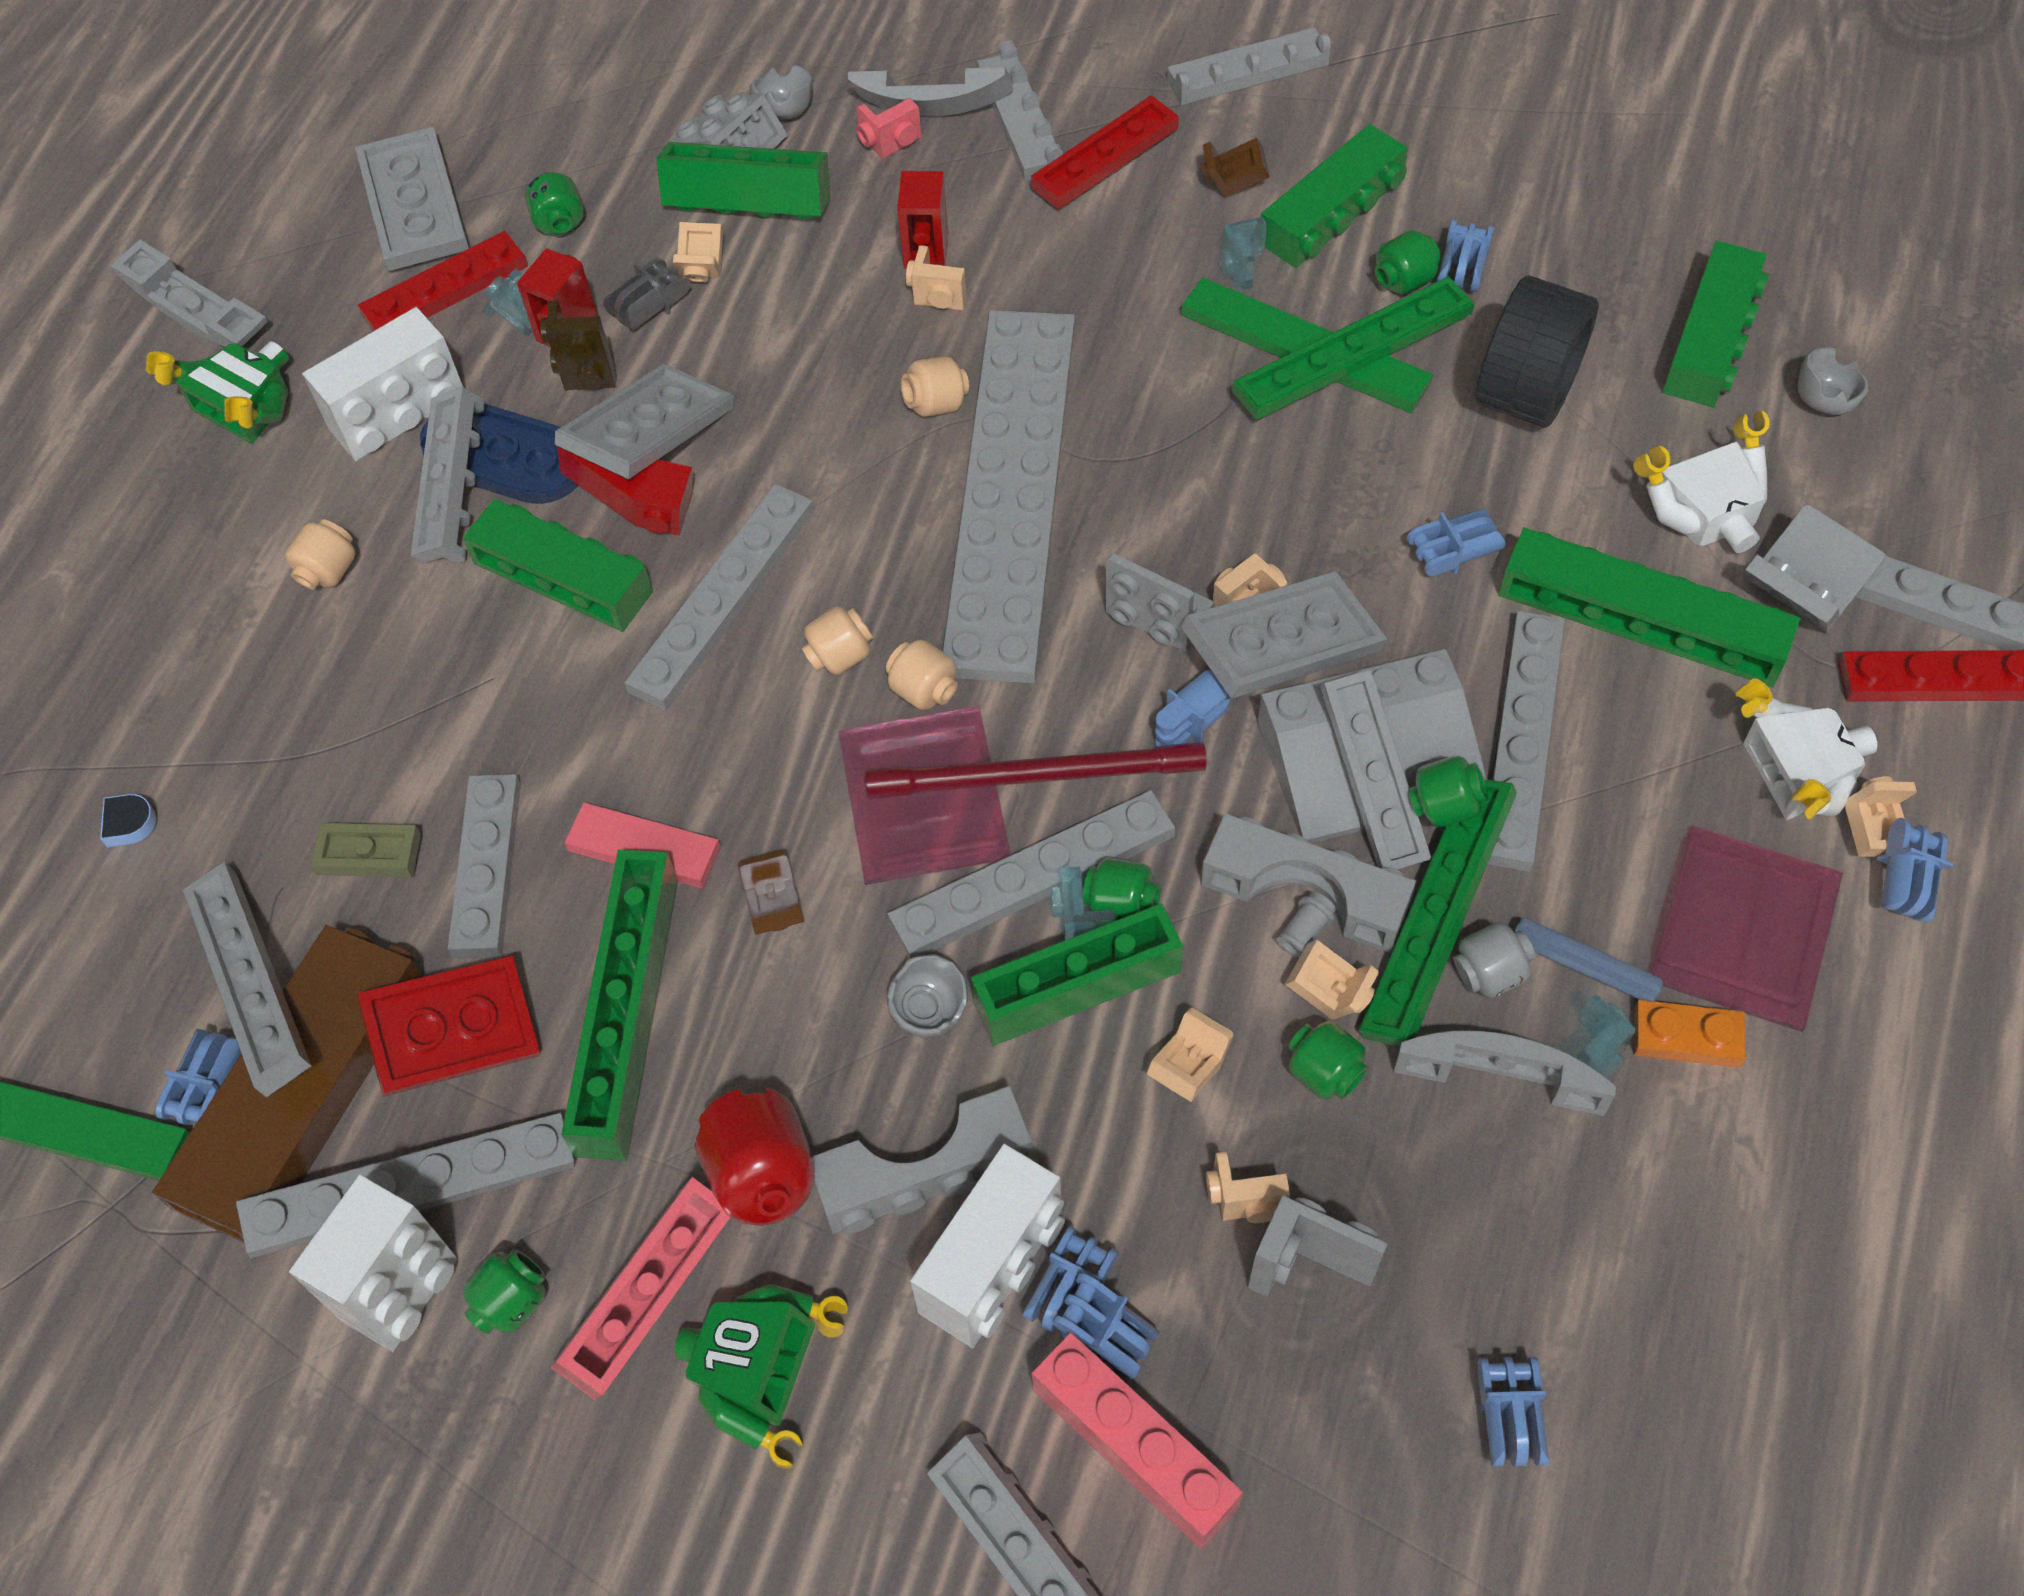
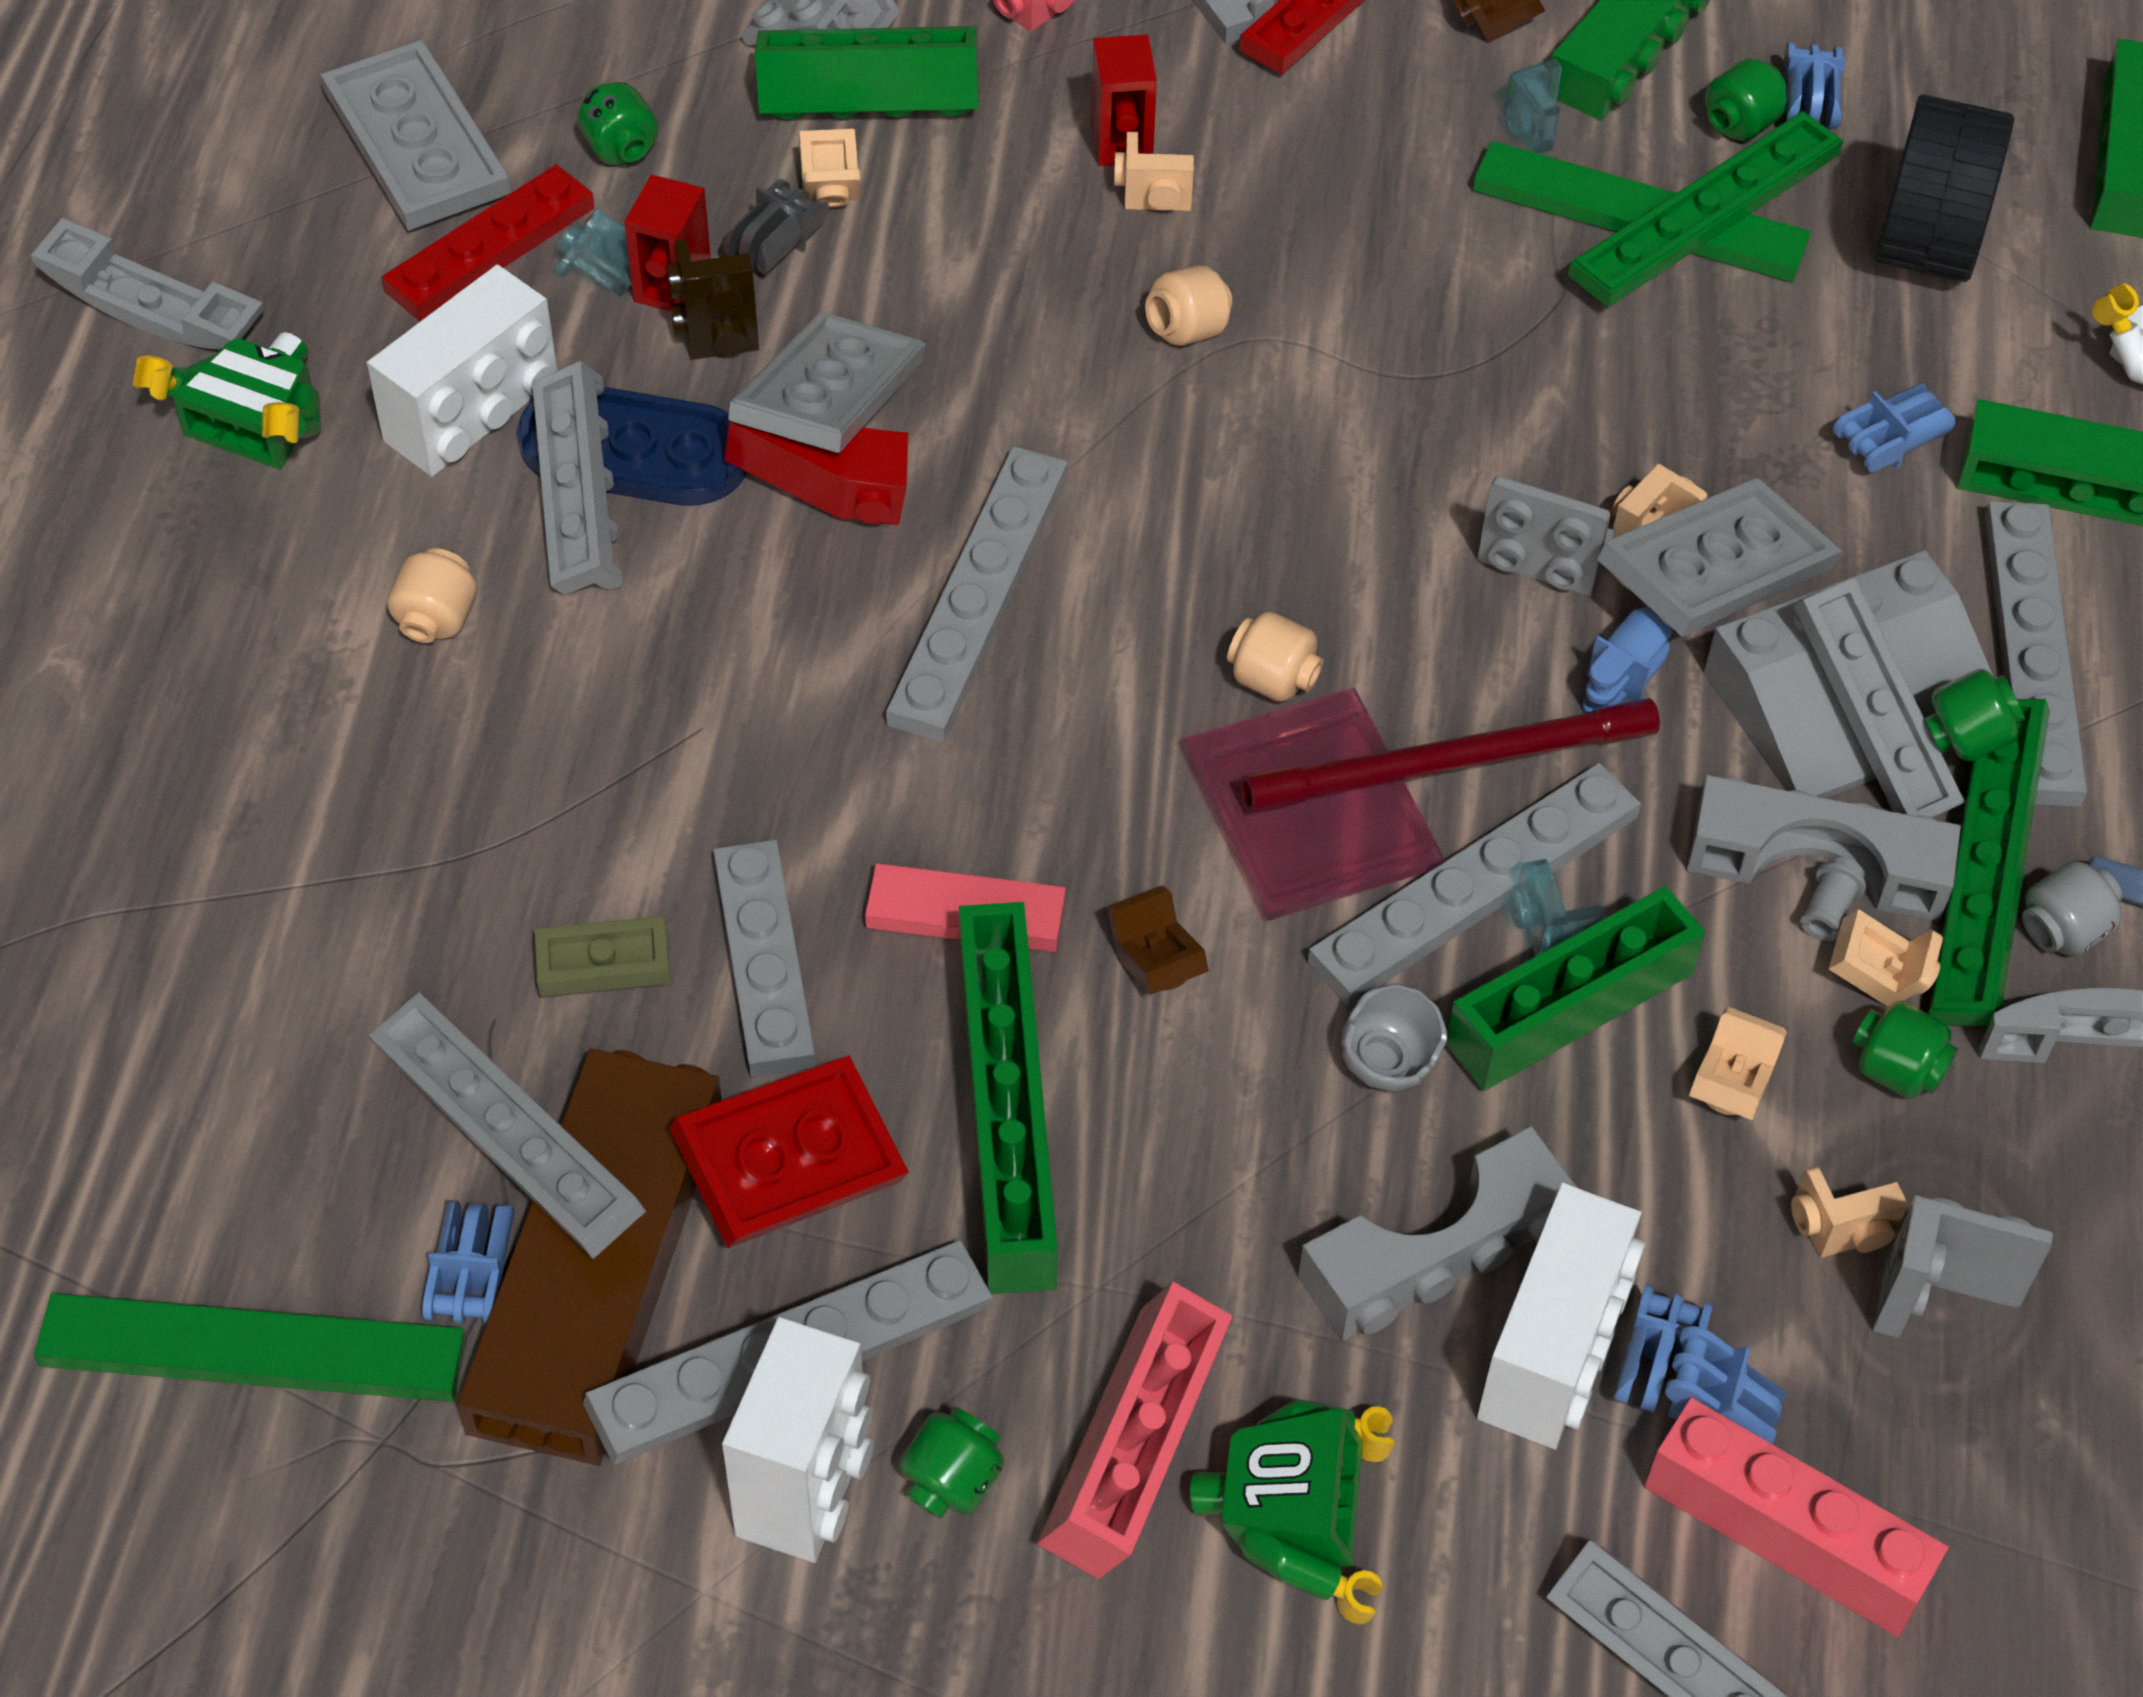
camera: 15 degrees left, 5 degrees down
(126, 820) = (259, 959): black tile -> none
(559, 564) = (757, 574): green brick -> none
(755, 1156) = (1242, 1248): red cylinder -> none
(837, 640) = (1152, 627): light nougat head -> none
(1010, 497) = (1320, 430): light grey plate -> none
(1120, 887) = (1599, 877): green head -> none

